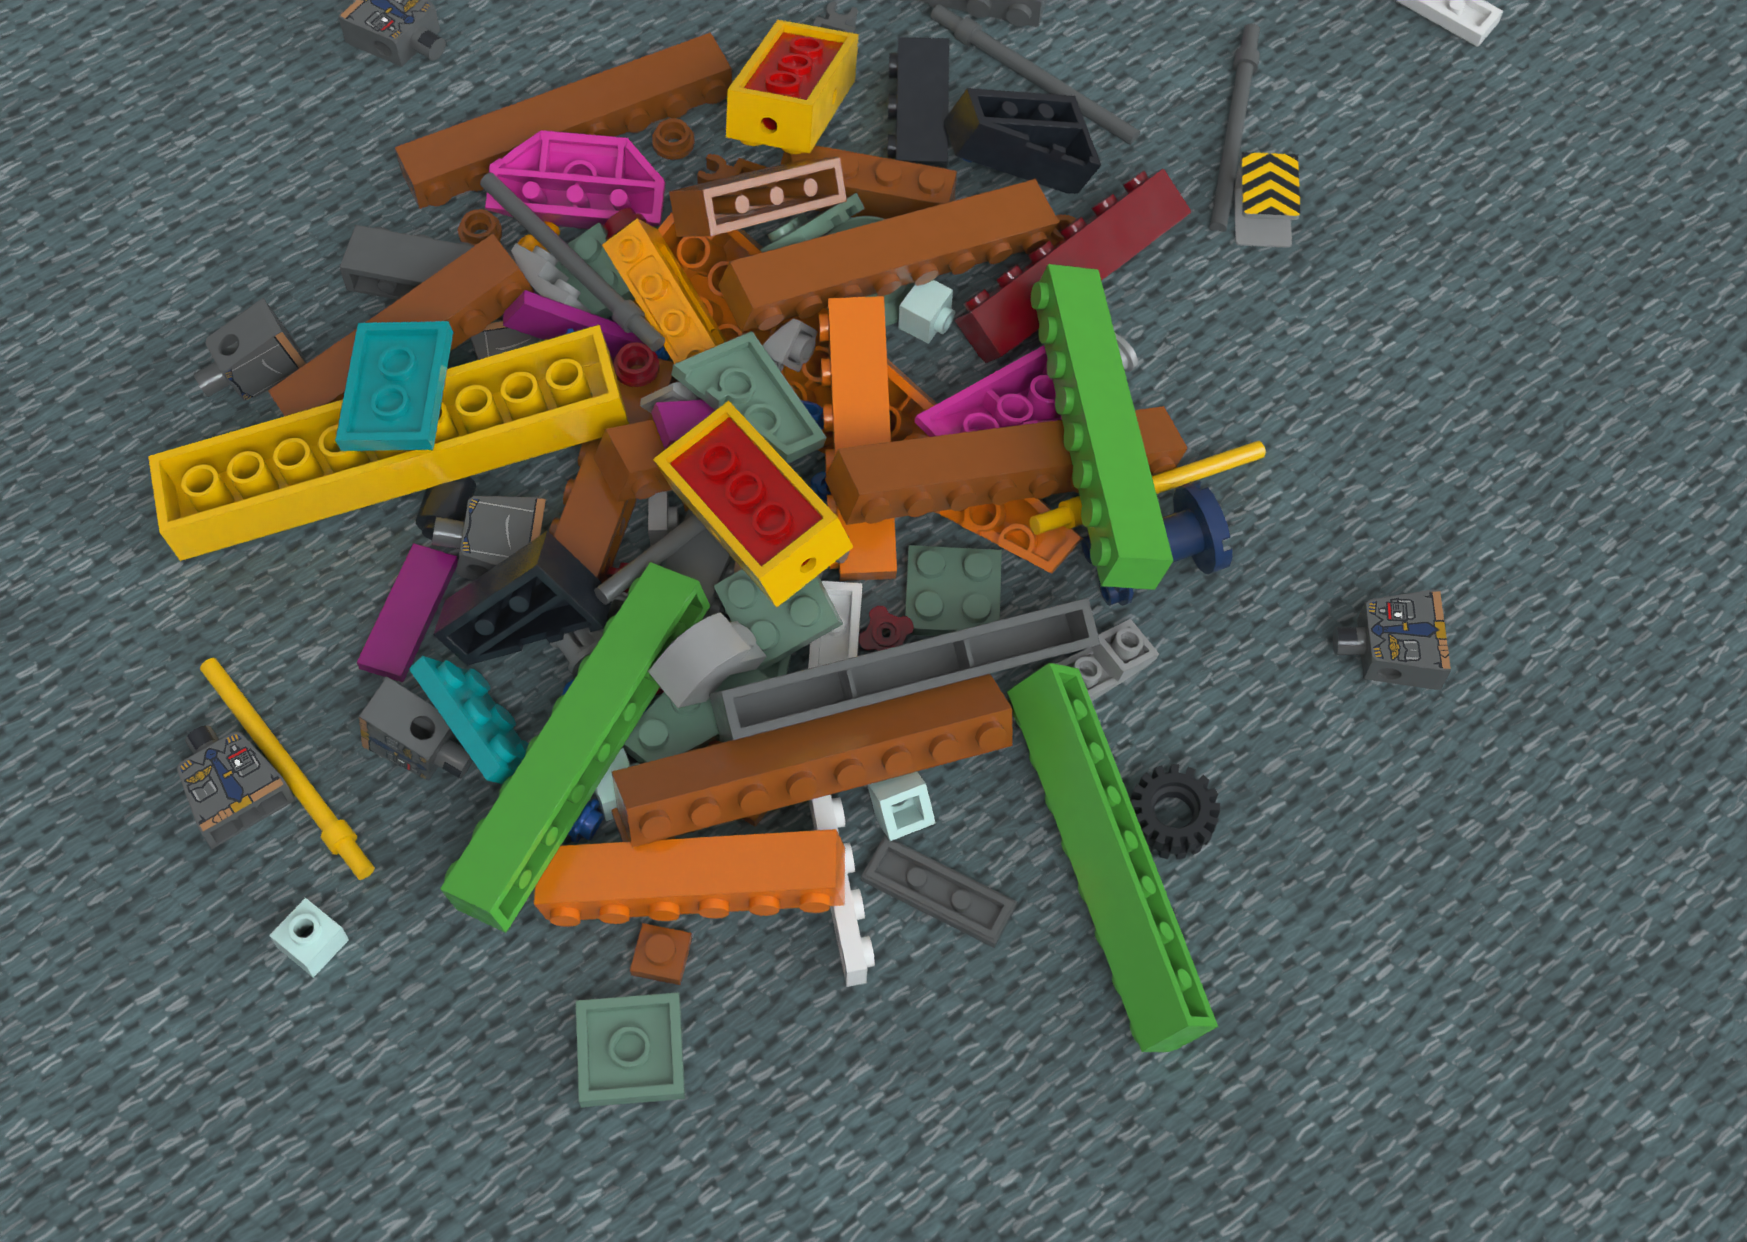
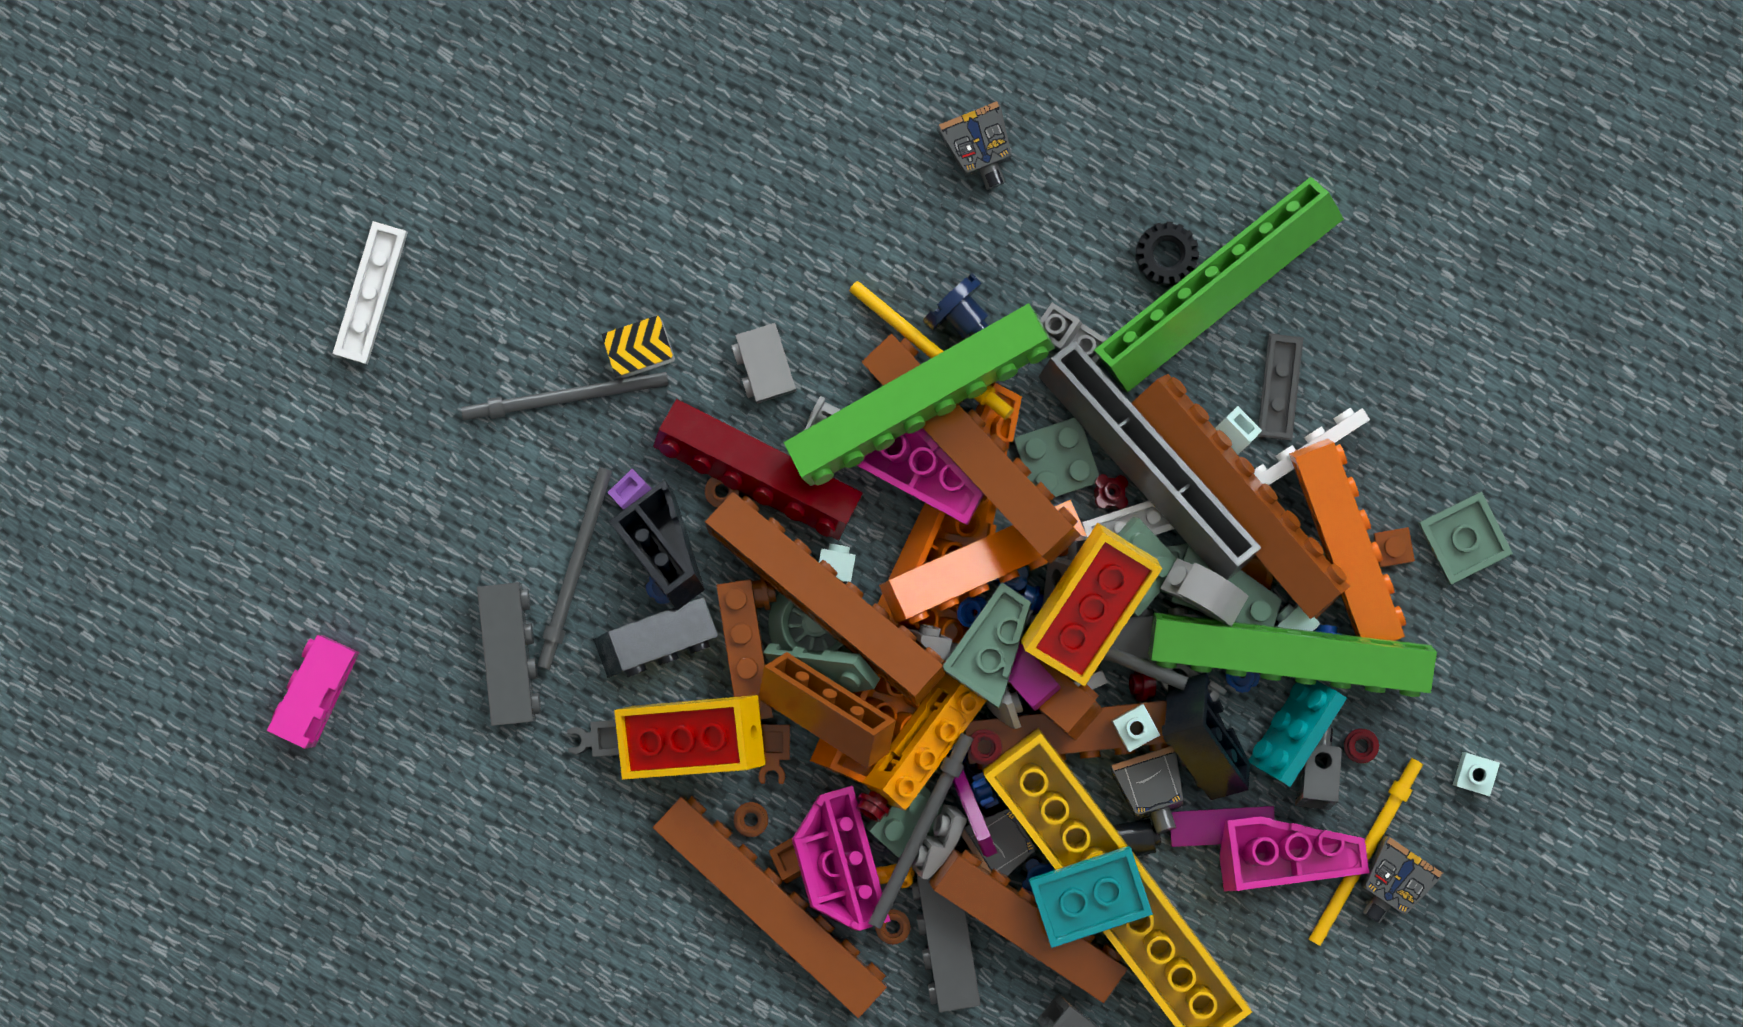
camera: 105 degrees left, 25 degrees up
(332, 650) = (1274, 853): none -> dark pink wedge
(417, 798) = (1372, 742): none -> dark red plate
(578, 527) = (1123, 722): none -> light aqua plate
(1105, 146) = (629, 489): none -> medium lavender plate
(1199, 319) = (764, 362): none -> light grey brick

